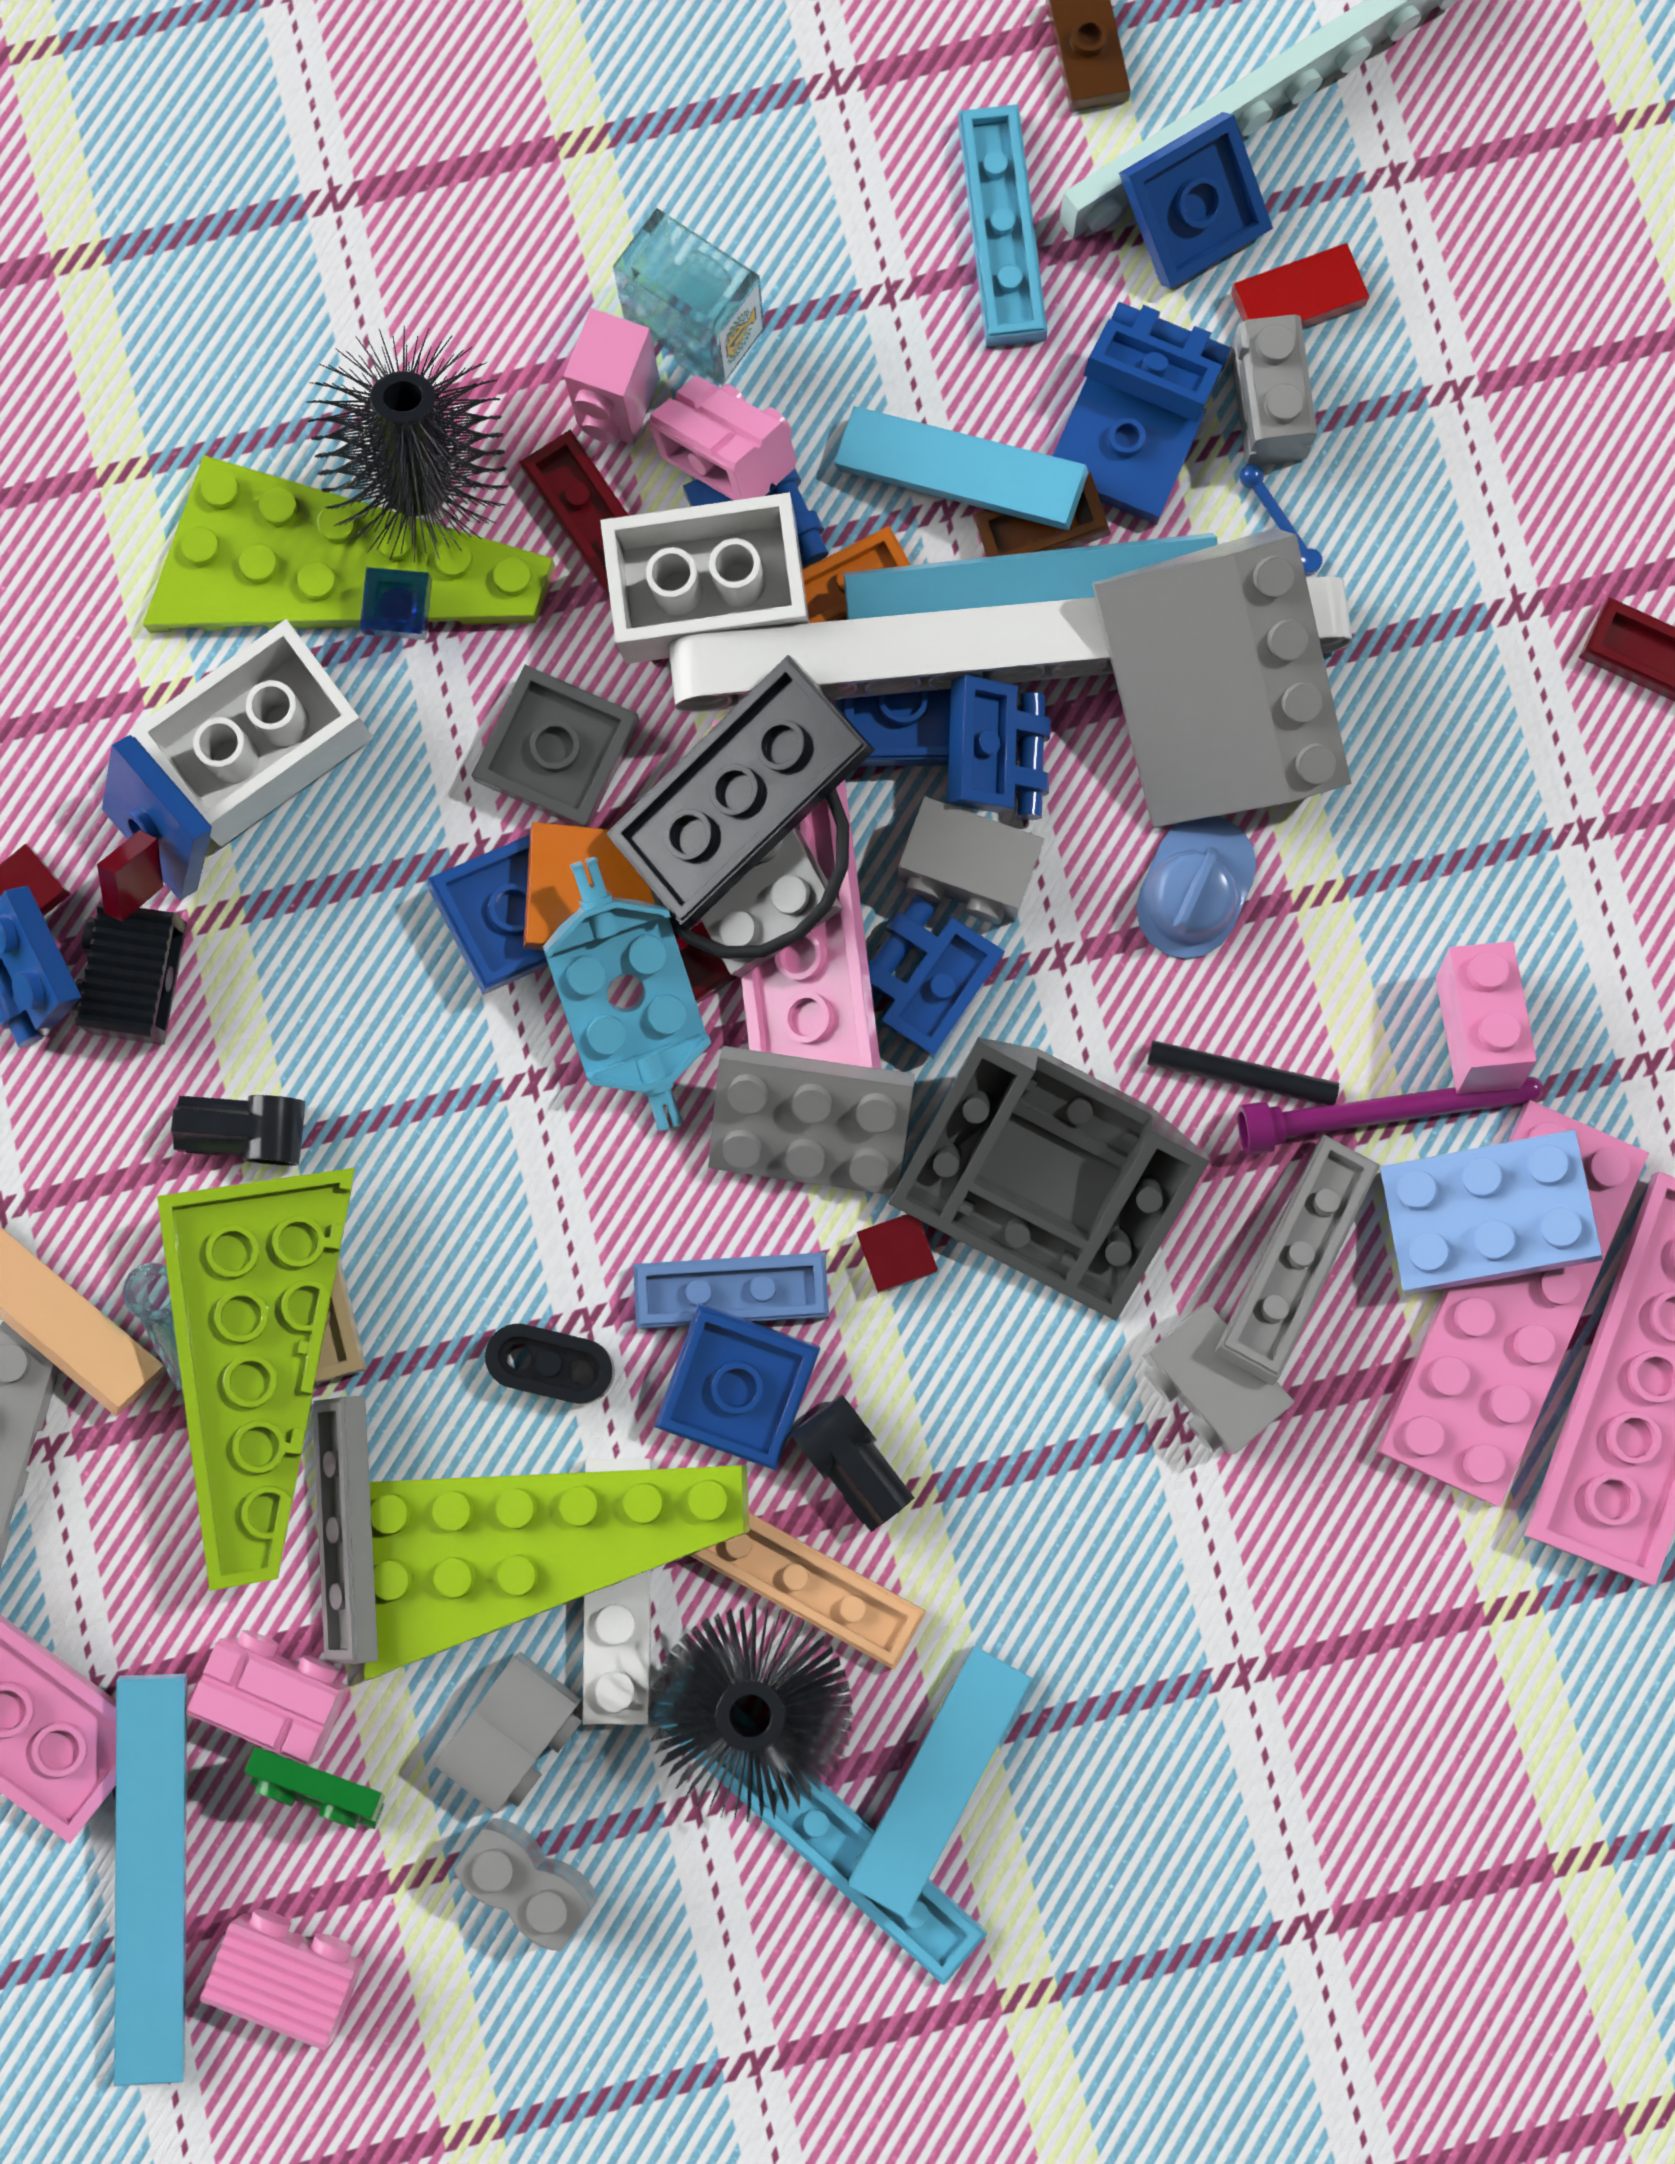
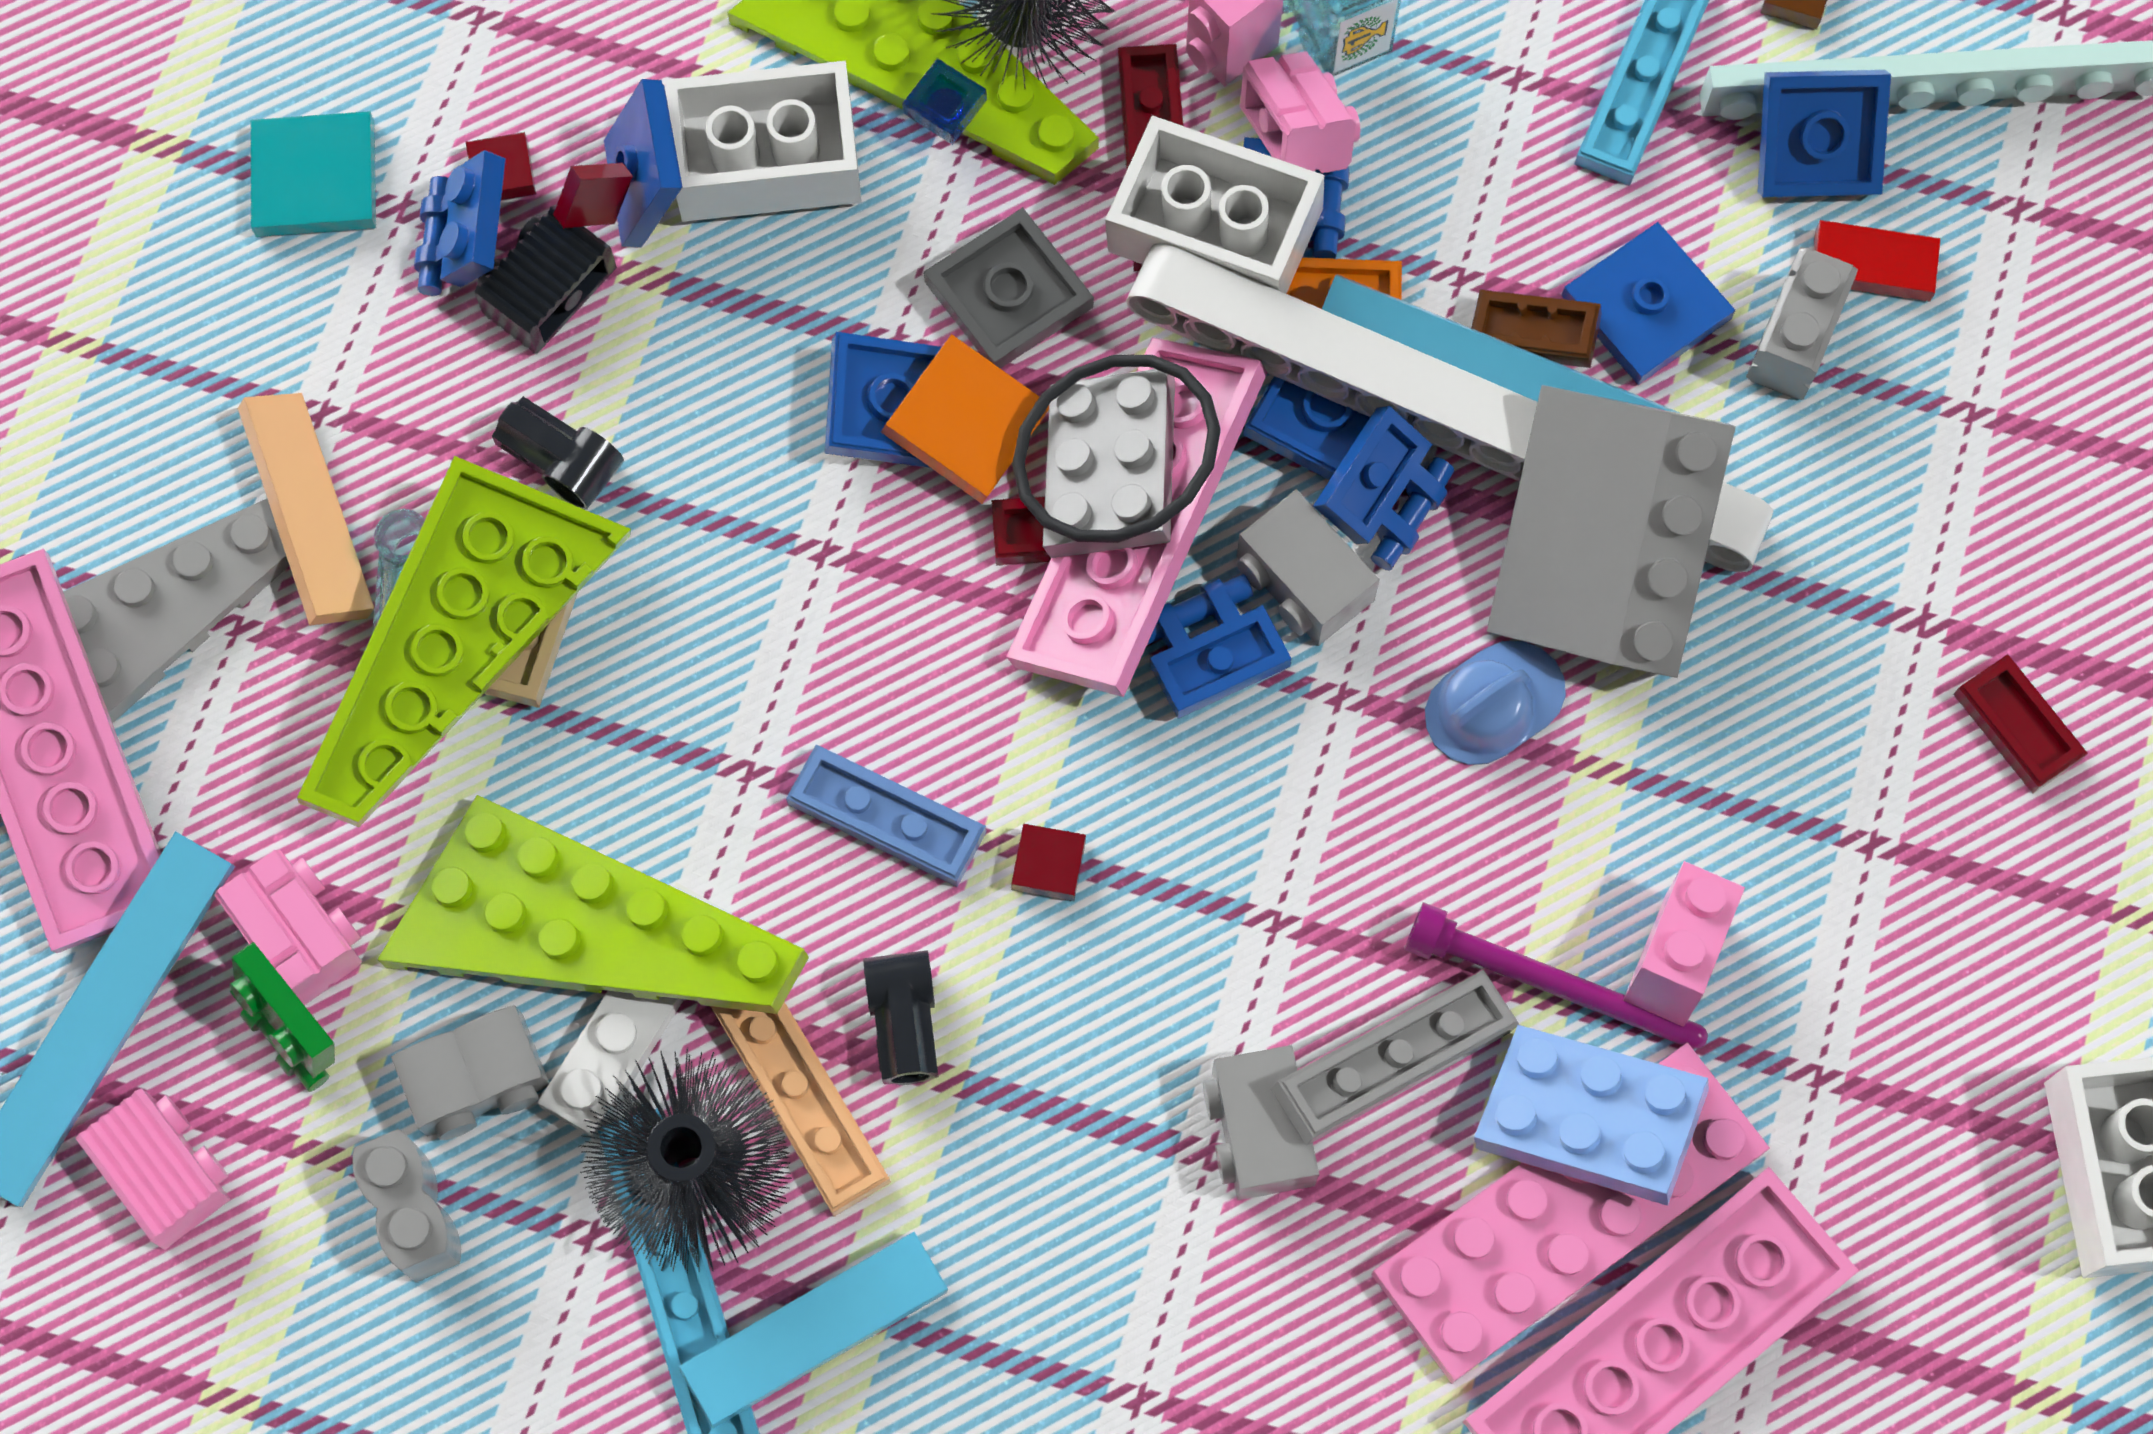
camera: 25 degrees right, 10 degrees down
(345, 1530) = (438, 825): light grey tile -> none
(551, 1363) = (697, 788): black plate -> none
(637, 1045) = (936, 566): medium azure plate -> none
(737, 1386) = (842, 894): blue plate -> none
(739, 791) = (1137, 394): tile -> none
(810, 1120) = (1038, 705): light grey plate -> none
(961, 468) = (1491, 245): medium azure tile -> none
(1051, 1173) = (1218, 862): dark grey slope -> none
(1157, 360) = (1714, 246): blue plate -> none
(1242, 1073) = (1442, 880): black bar -> none
(1252, 477) = (1755, 482): blue hinge -> none

